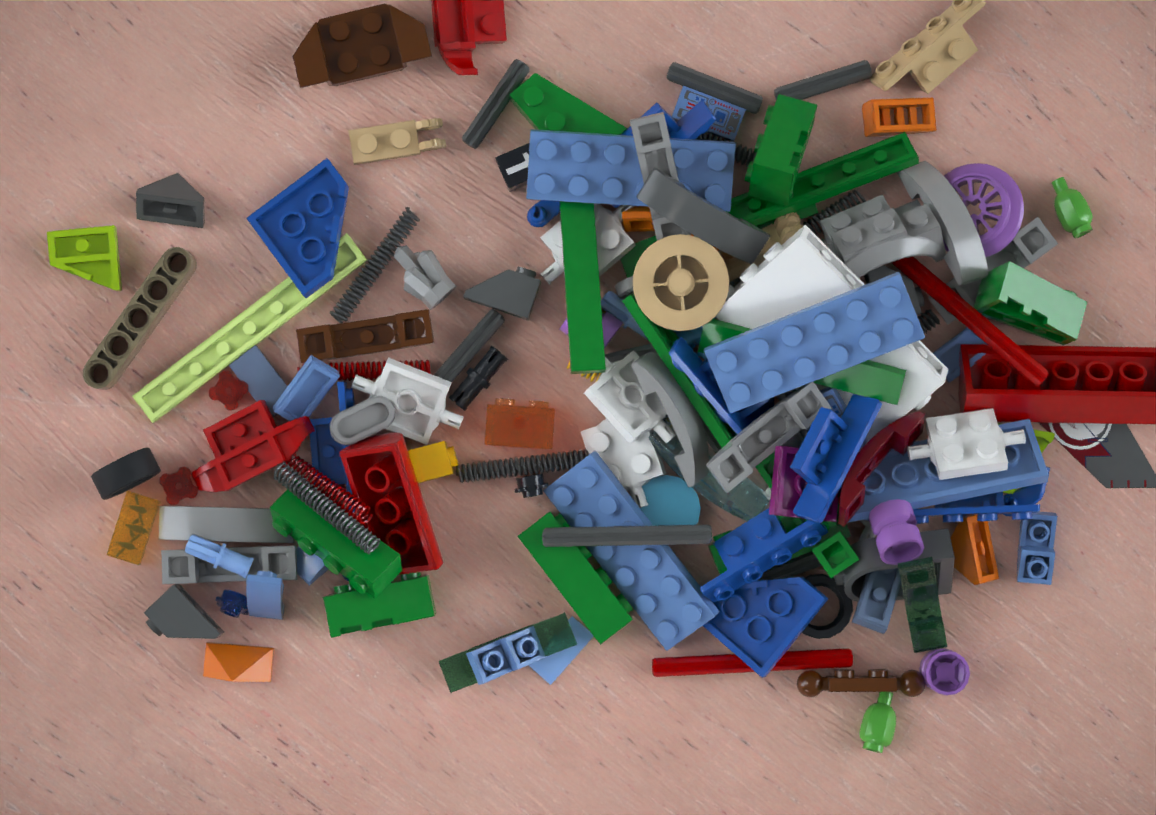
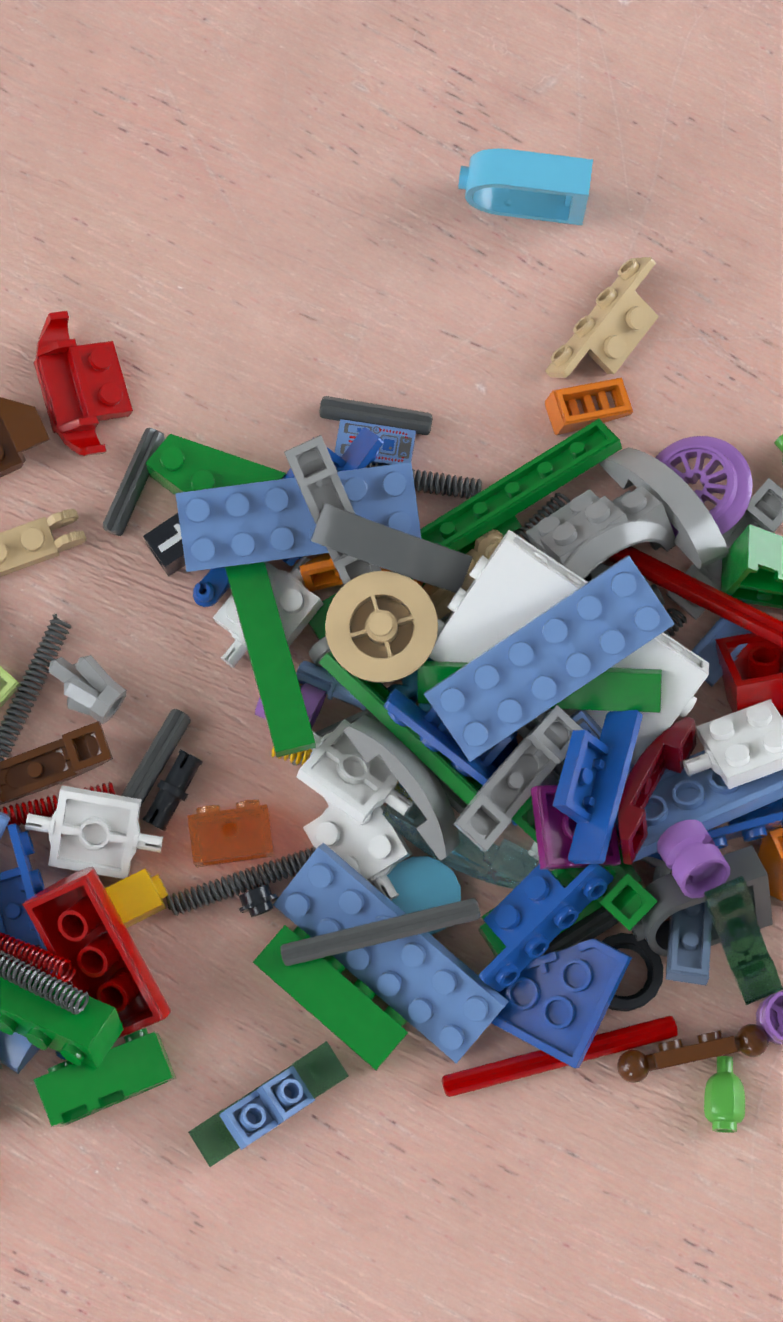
camera: 10 degrees left, 10 degrees down
(362, 420) = (44, 863): light grey tile -> none
(507, 292) = (187, 686): dark grey slope -> none
(554, 664) = (328, 1106): light blue sticker -> none
(780, 149) = (463, 462): green wedge -> none
(826, 81) = (495, 386): dark grey axle -> none

